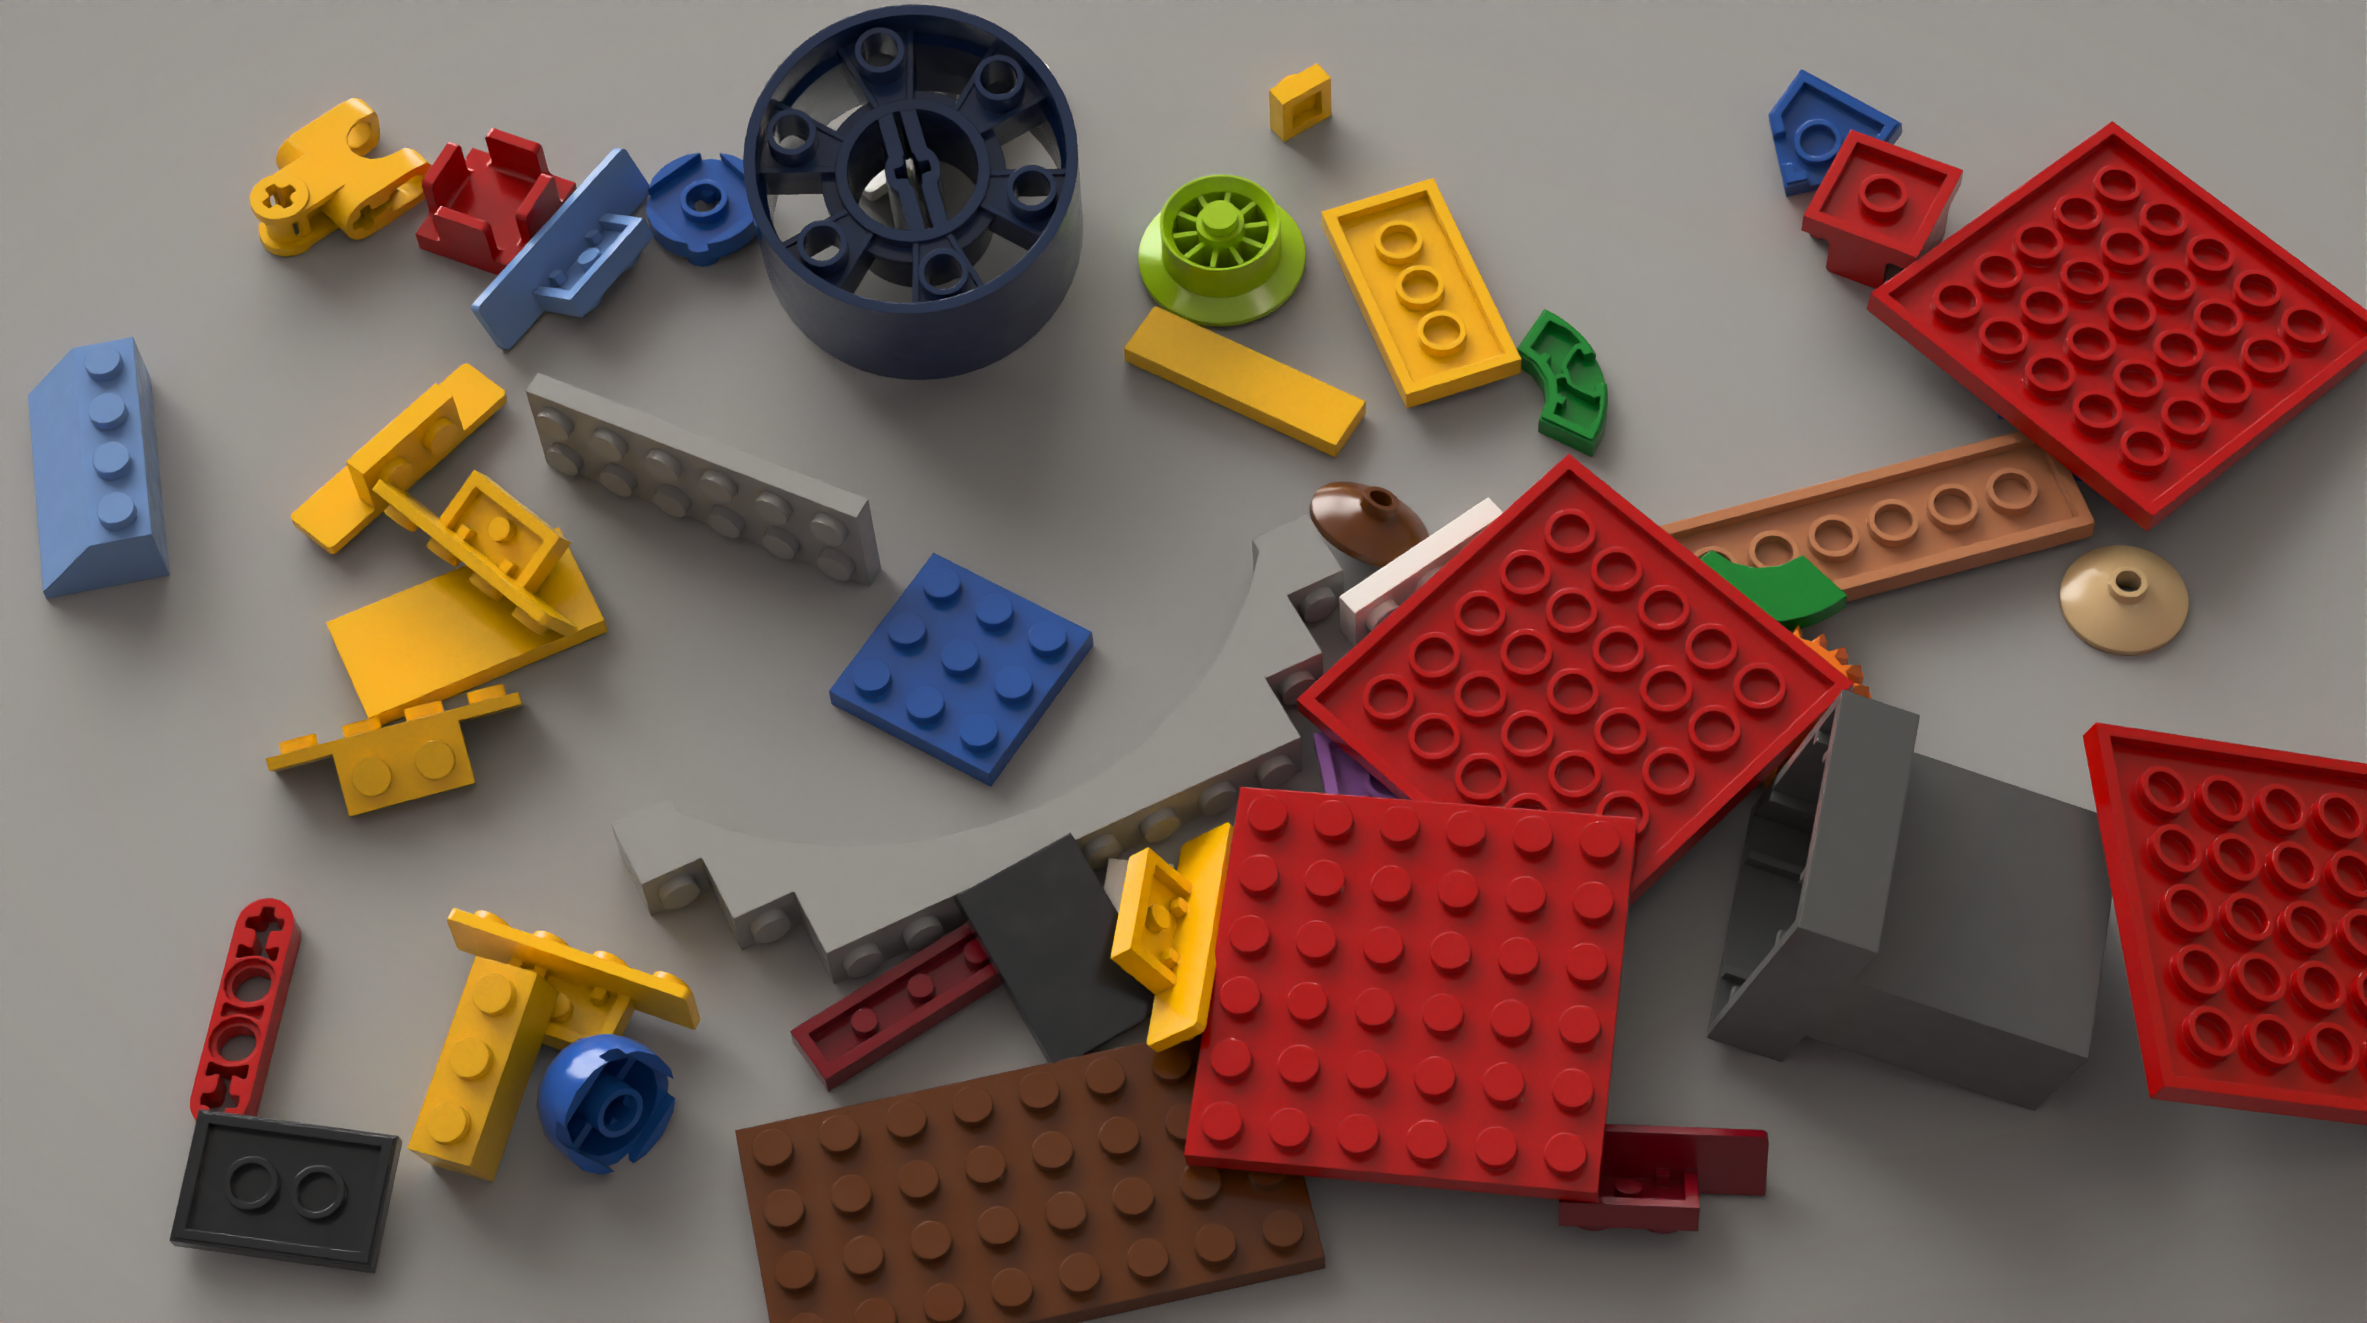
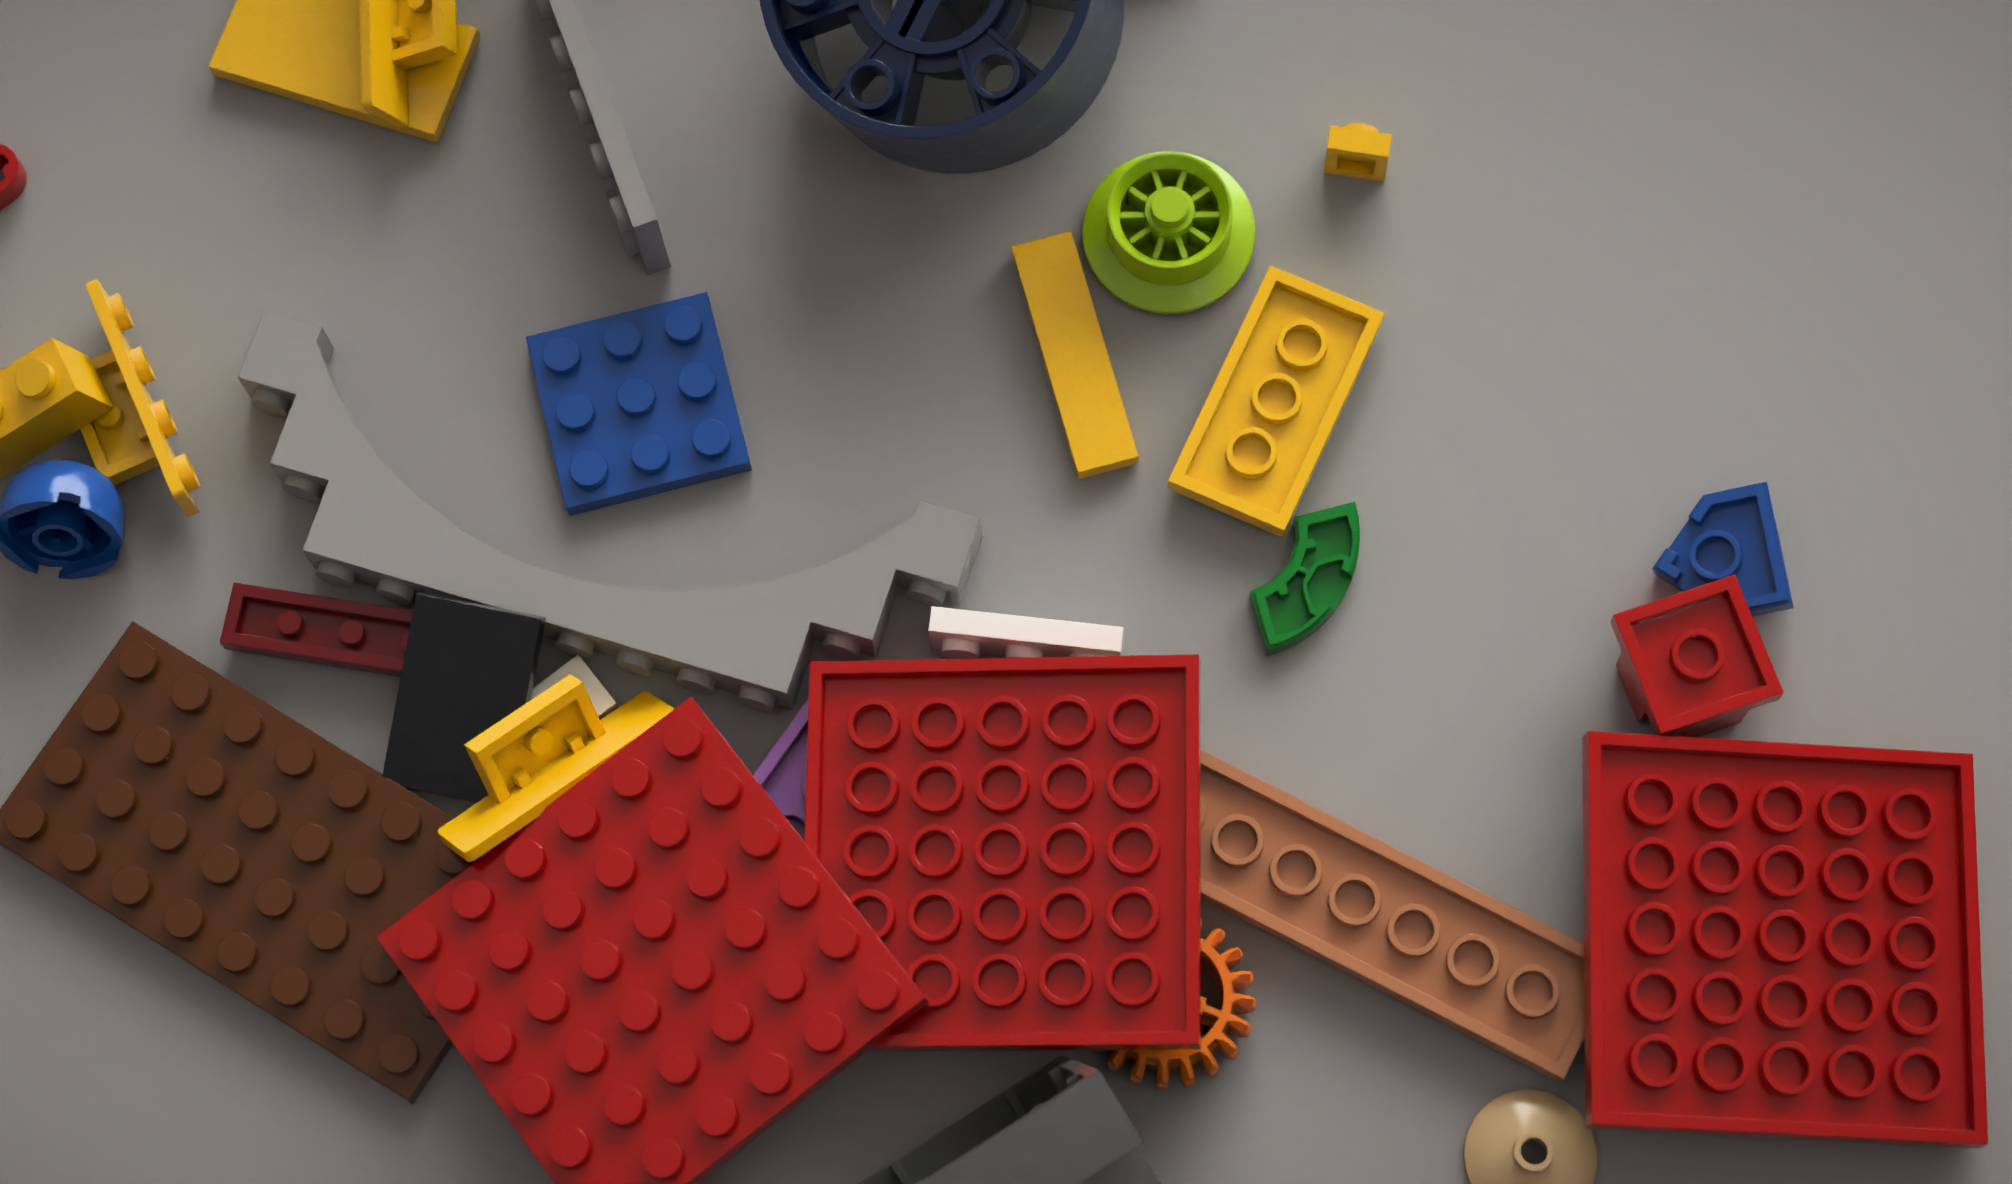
camera: 45 degrees right, 15 degrees up
(400, 760) = (199, 118): yellow bracket -> none
(1366, 522) = (1007, 564): reddish brown dish -> none
(1789, 592) = (1242, 904): green tile -> none

